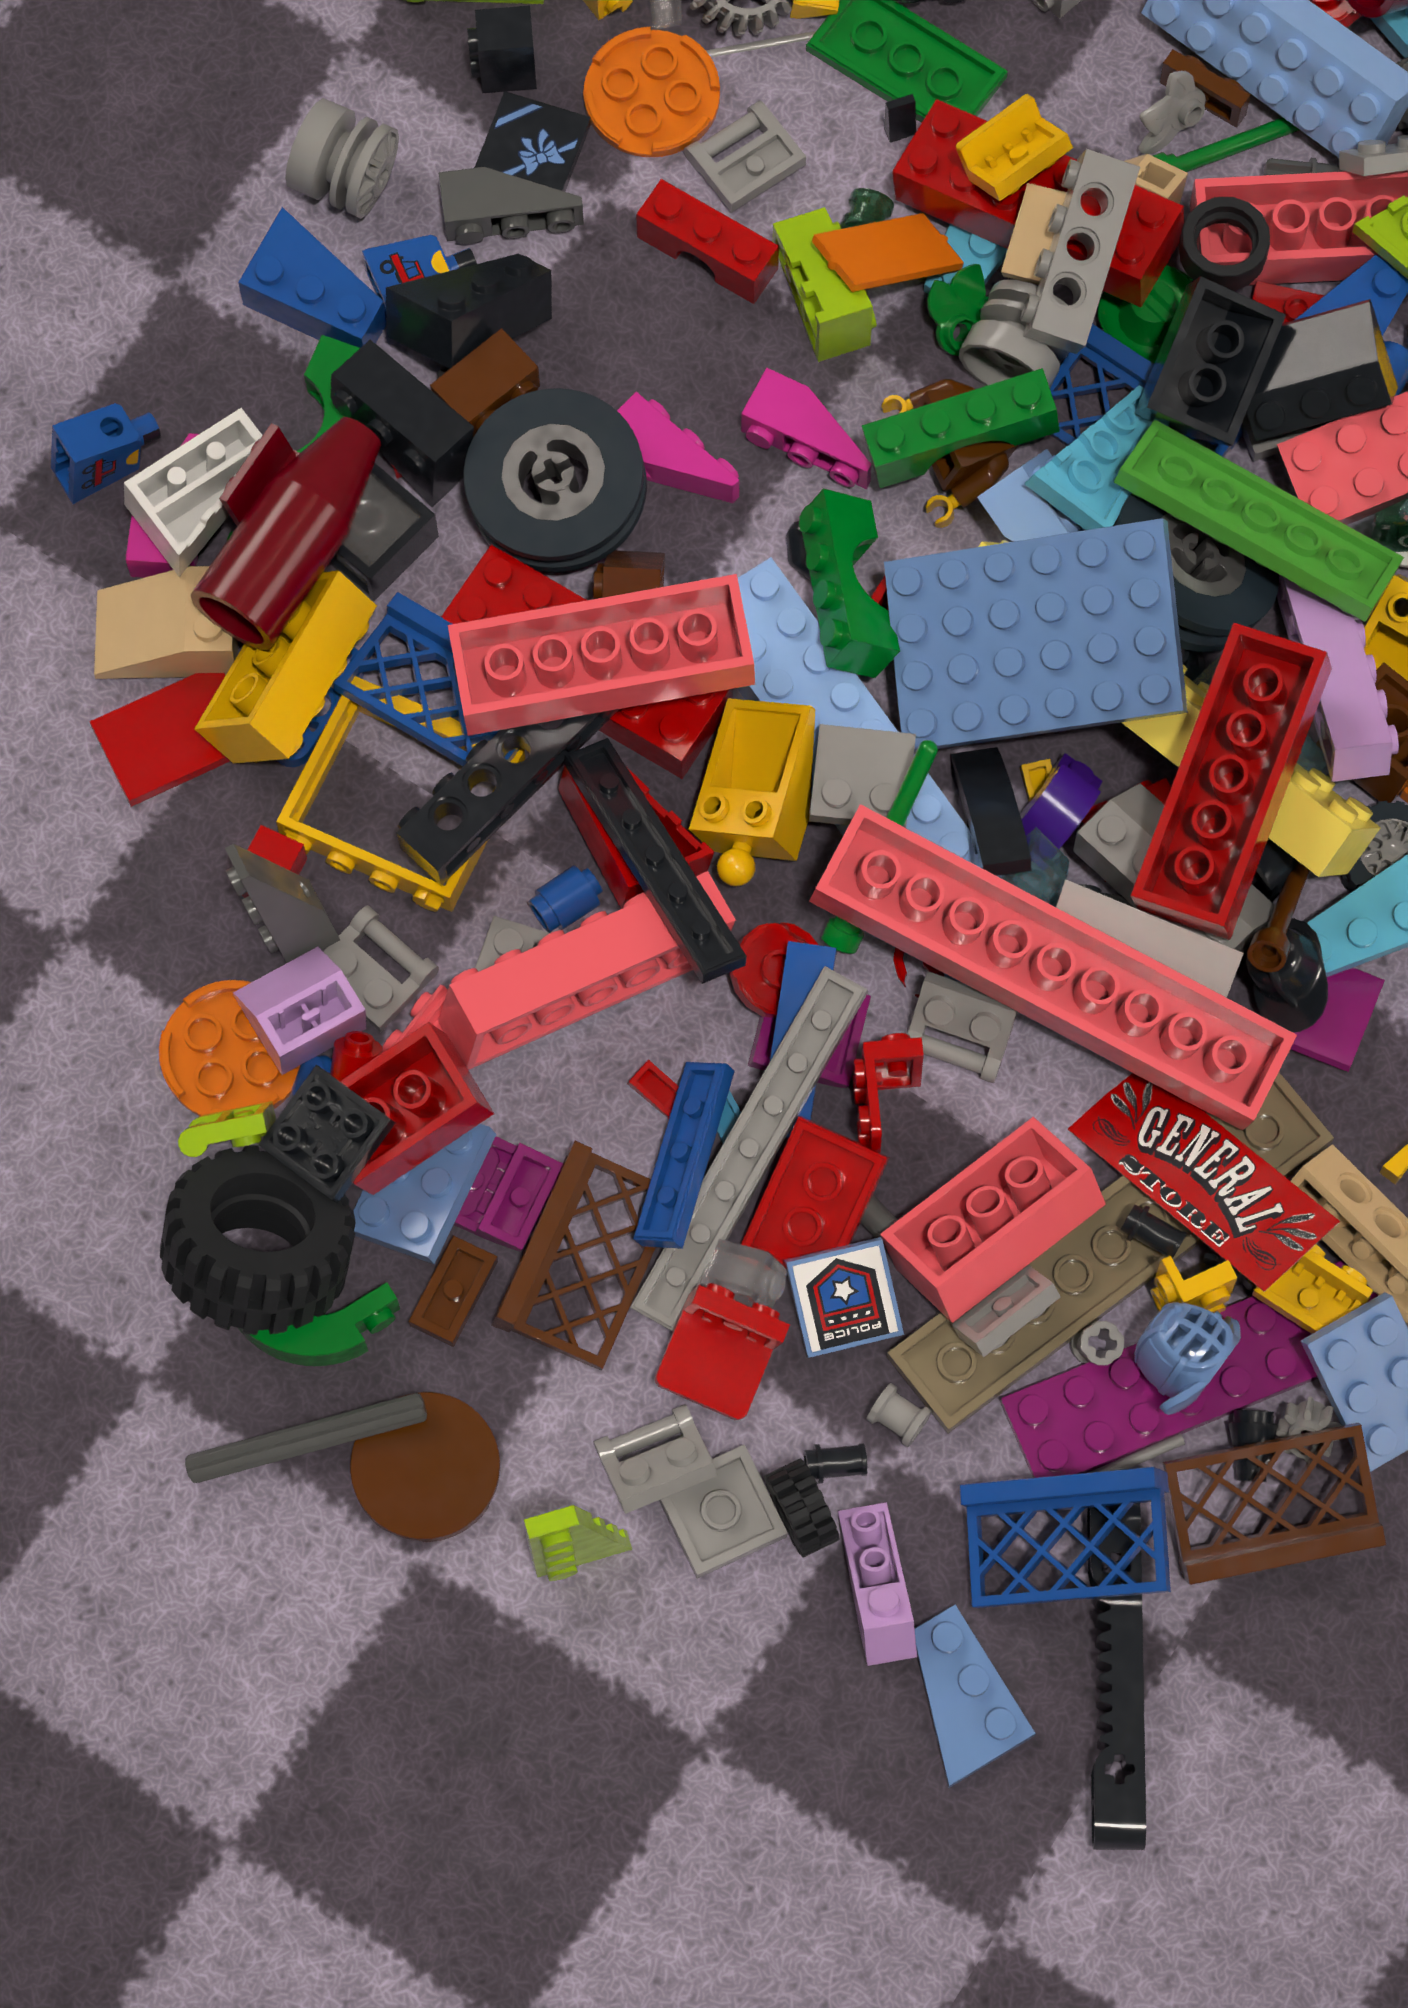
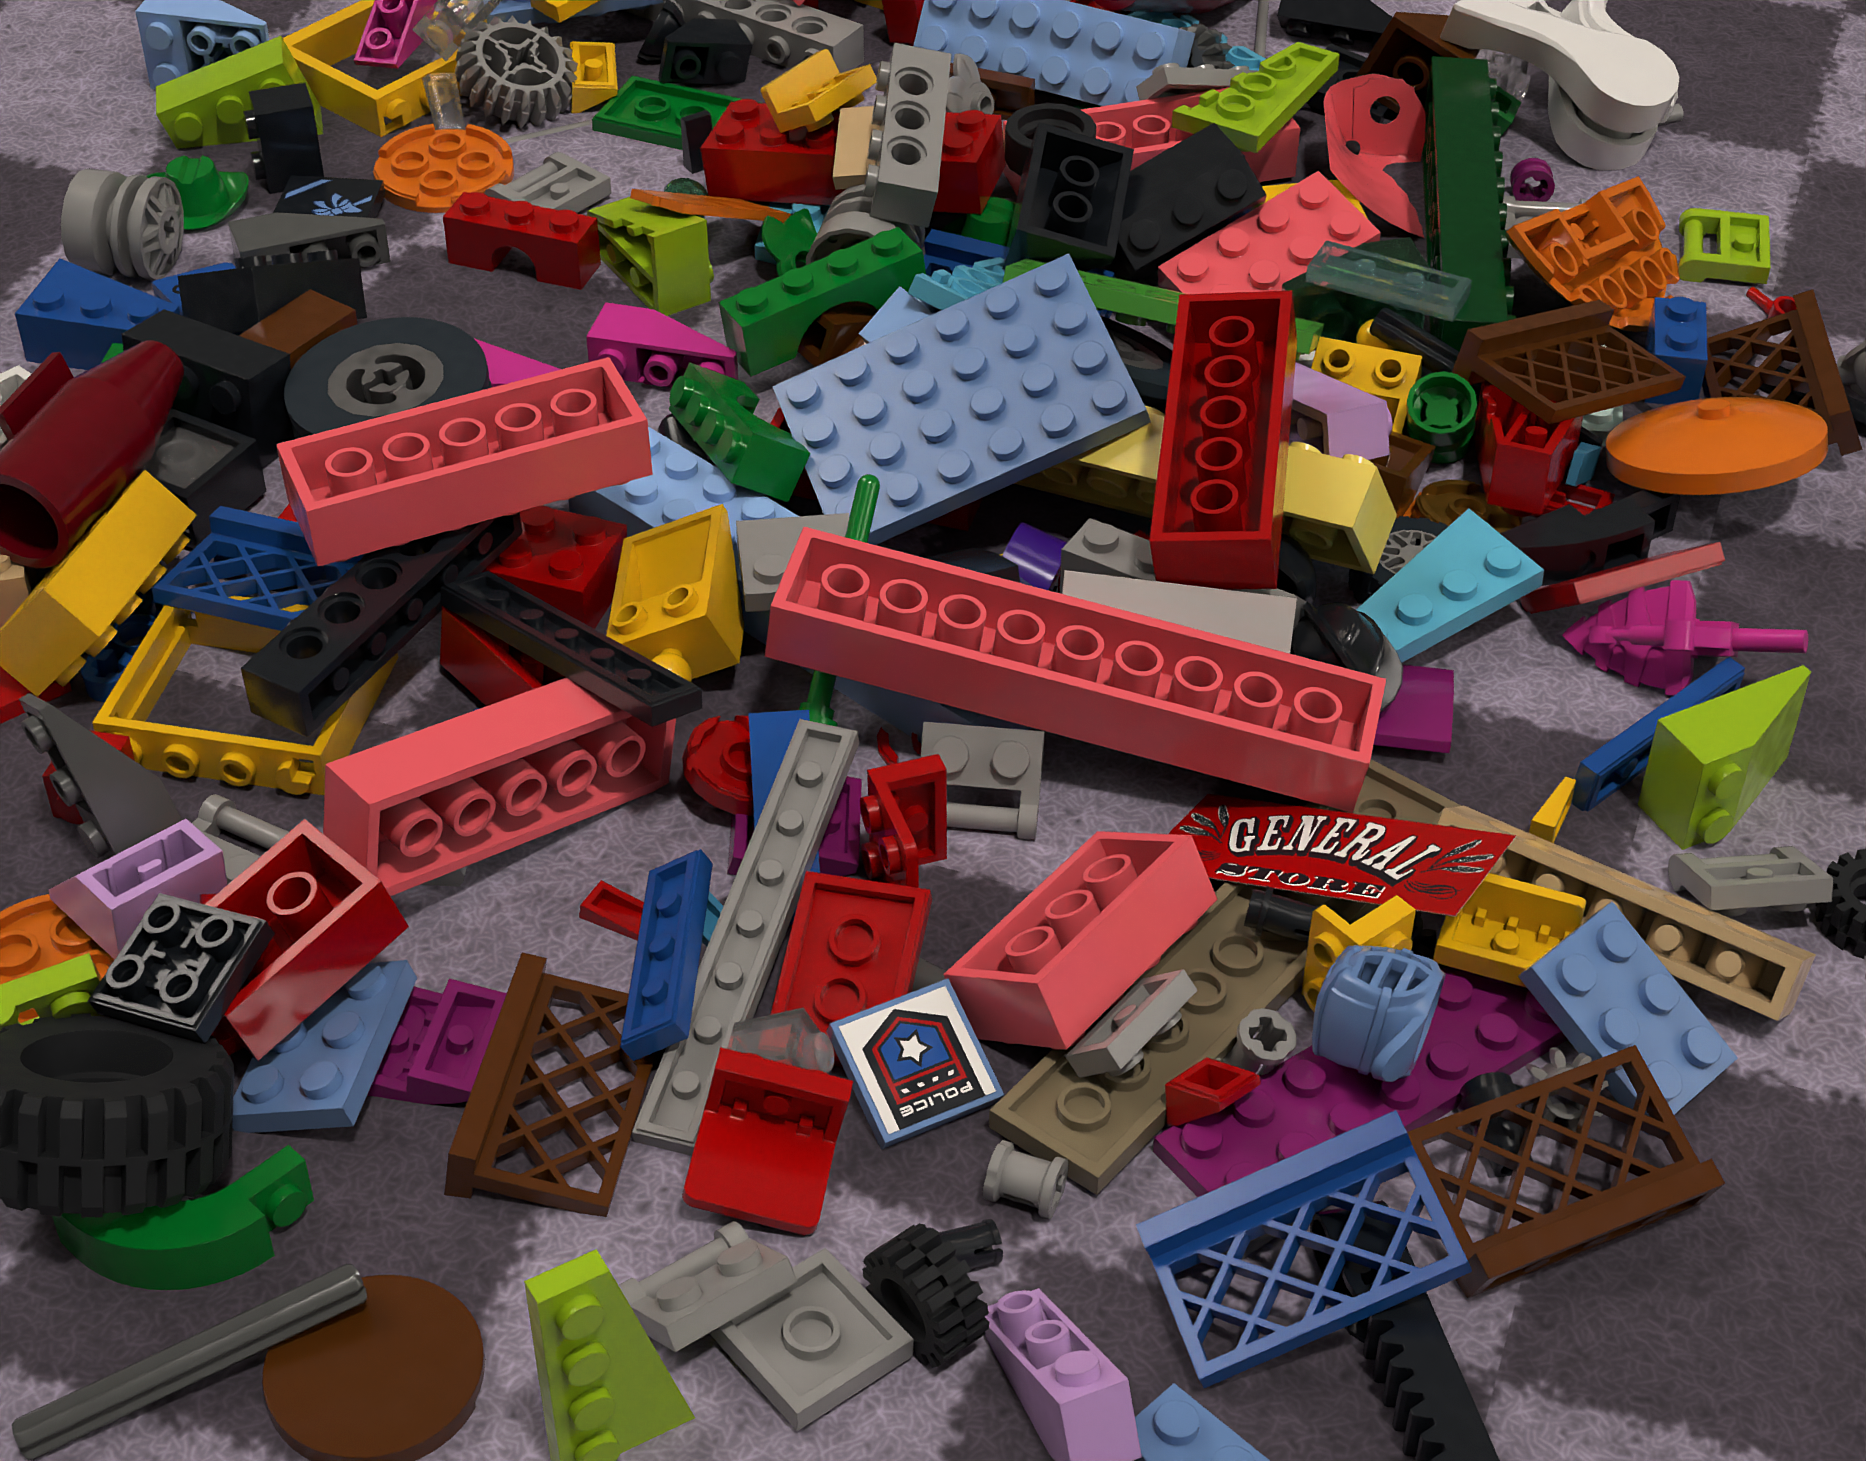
camera: 15 degrees left, 30 degrees down
(411, 90) = (205, 192): none -> green hat
(453, 1291) = (384, 1158): reddish brown plate -> none
(1047, 1377) = (1206, 1090): none -> red slope
(1271, 946) = (1322, 597): reddish brown piece -> none

